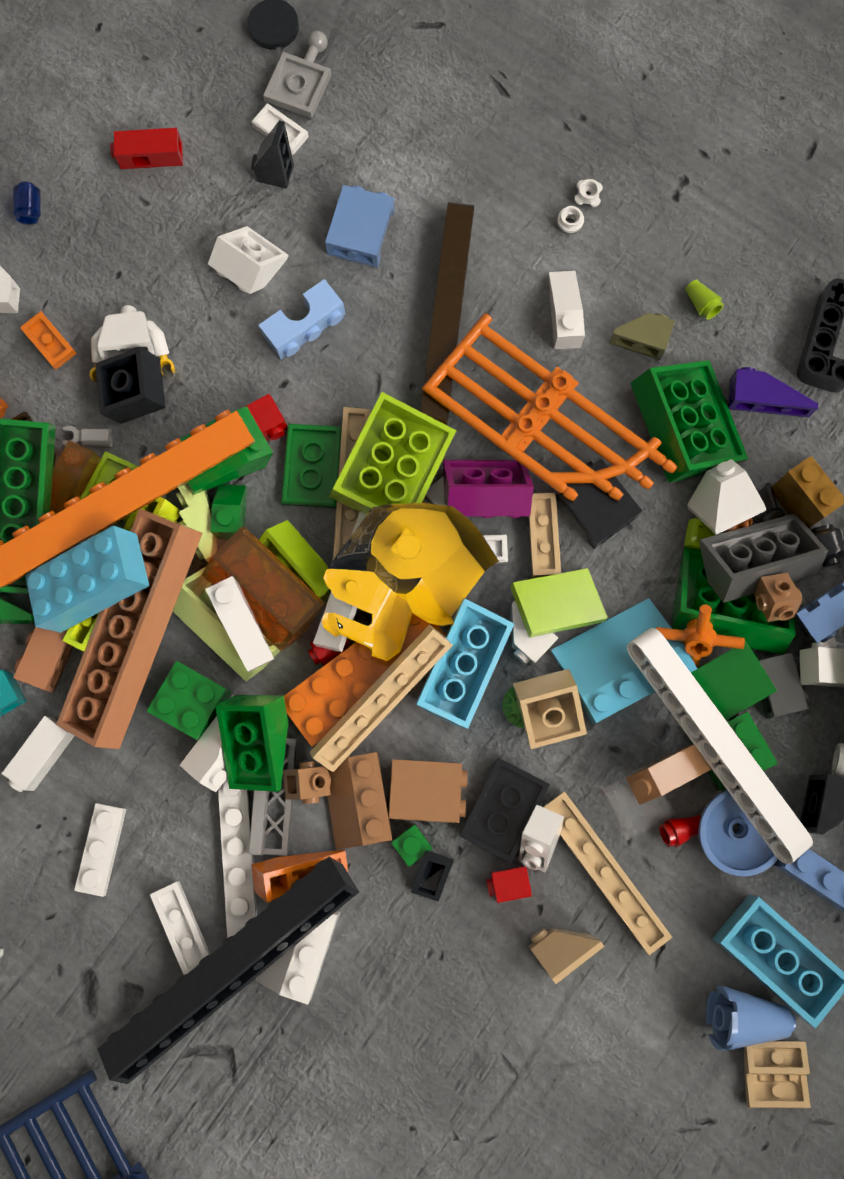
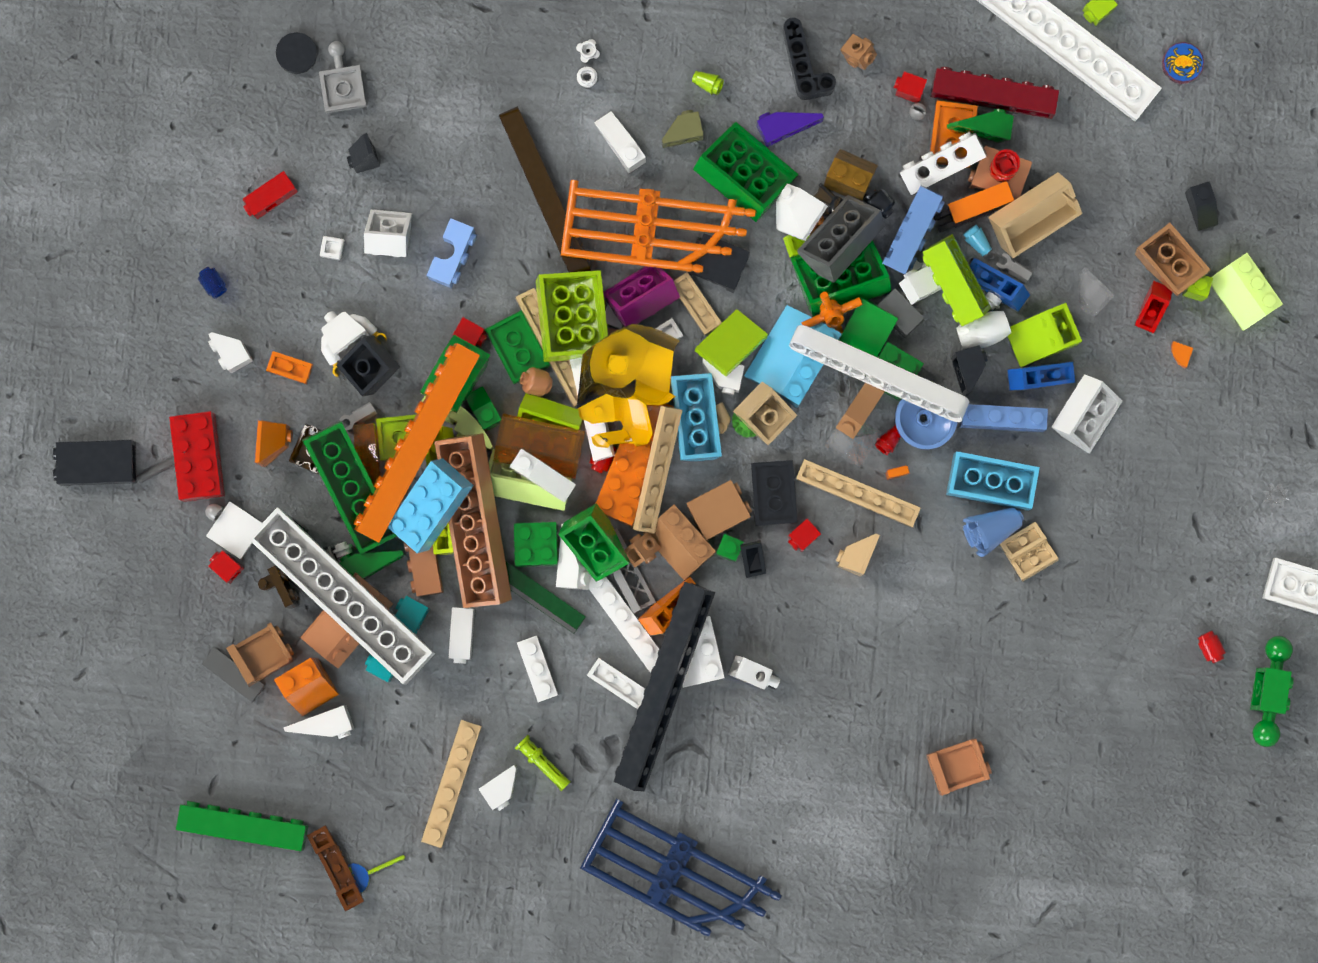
camera: 30 degrees left, 5 degrees up
(30, 955) = (535, 756): none -> lime pin
(158, 769) = (544, 600): none -> dark green tile
(179, 242) = (332, 248): none -> white tile
(268, 118) = (348, 126): white tile -> none
(306, 515) = (536, 382): none -> nougat head
(346, 1019) = (746, 671): none -> white torso
(359, 225) = (449, 164): medium blue panel -> none
(497, 685) = (723, 418): none -> tan arm
(540, 838) = (806, 496): white slope -> none
(668, 875) = (897, 472): none -> orange tile
(777, 597) = (865, 259): medium nougat brick -> none

